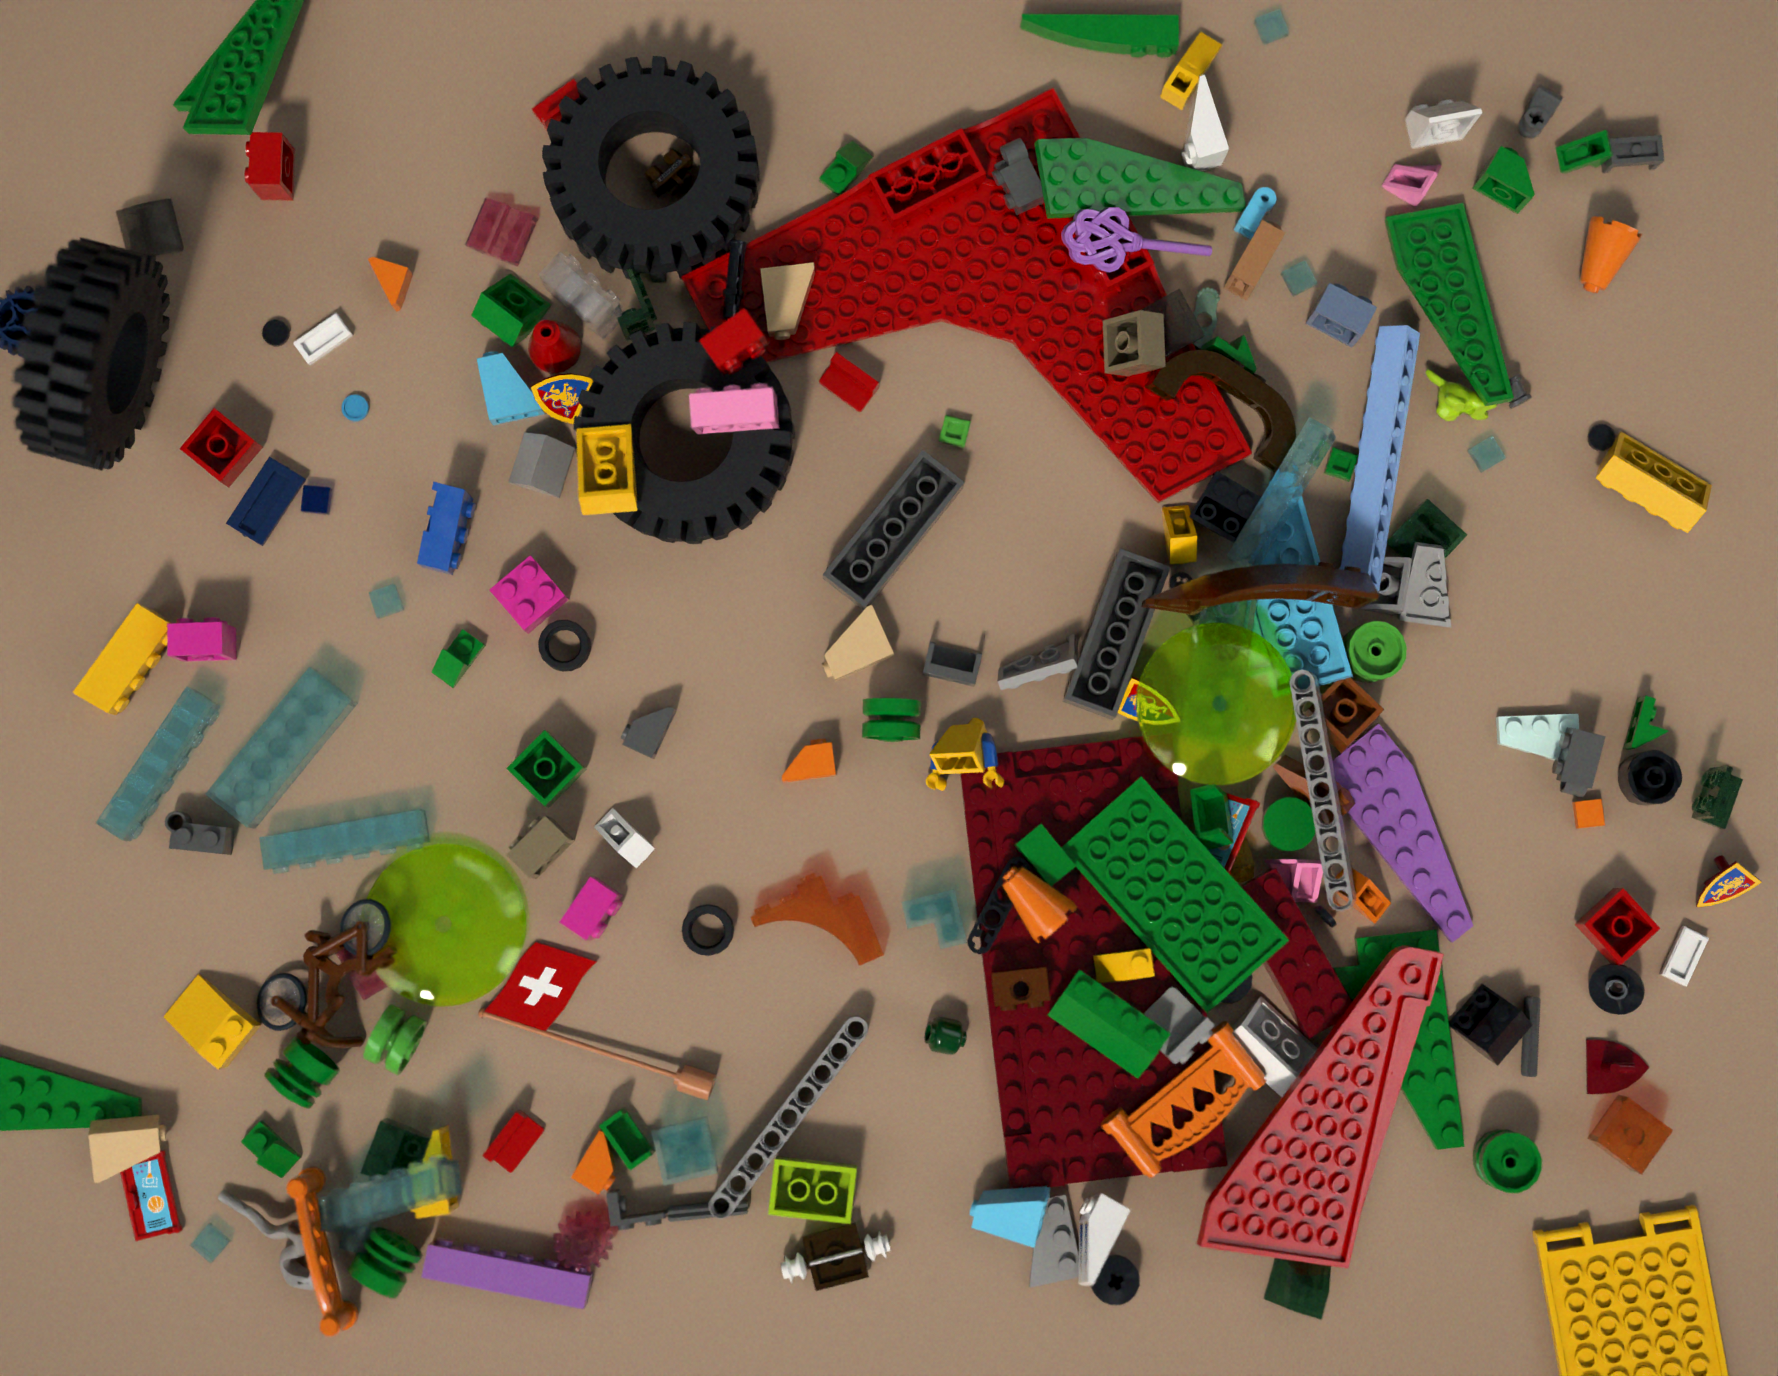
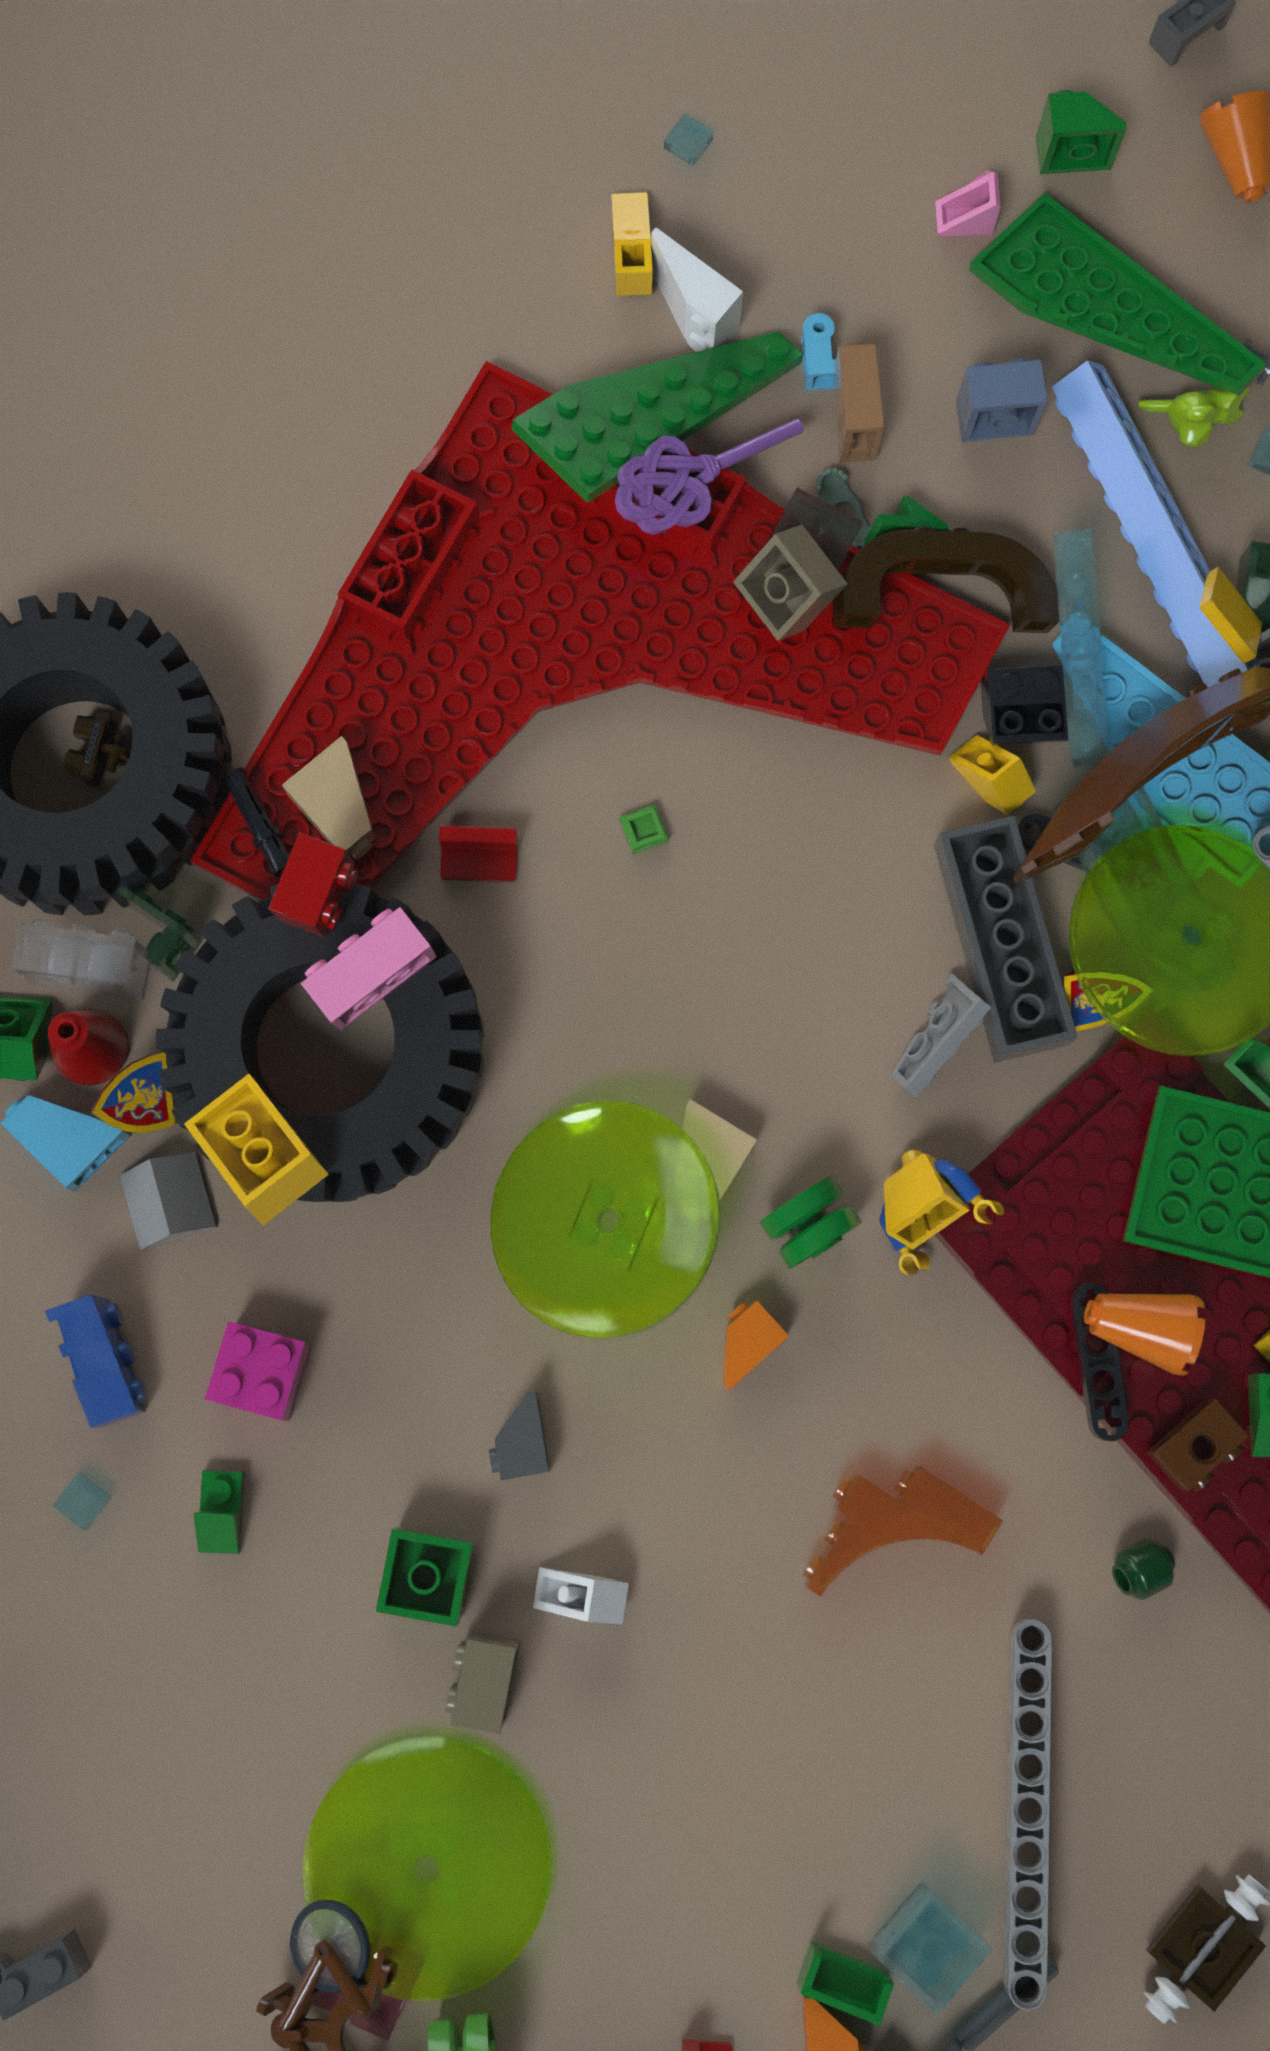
camera: 30 degrees left, 5 degrees down
(281, 748) = (68, 1785): clear light blue brick -> none
(343, 840) = (225, 1847): clear light blue brick -> none
(539, 994) = (607, 1865): red flag -> none
(549, 631) = (314, 1402): black tyre -> none
(591, 909) = (601, 1717): dark pink brick -> none
(687, 930) = (793, 1634): black tyre -> none
(752, 614) = (552, 1207): none -> clear neon green dish
(812, 1189) = (1122, 1883): lime brick -> none
(845, 168) = (302, 609): green slope -> none
(893, 530) = (654, 991): dark grey brick -> none
(937, 909) = (1029, 1418): clear light blue brick -> none
(952, 665) = (834, 1107): dark grey panel -> none
(1018, 178) = (519, 483): dark grey hinge -> none
(1045, 855) = (1113, 1261): green panel -> none
(1109, 32) = (507, 260): green slope -> none
(1299, 278) = (919, 395): clear light blue tile -> none
(1340, 464) = (1118, 572): green tile -> none
(1381, 534) = (1230, 615): none -> yellow tile
(1440, 123) = (958, 118): white slope -> none
(1539, 110) = (1055, 42): dark grey piece -> none
(1586, 151) = (1140, 49): green slope -> none

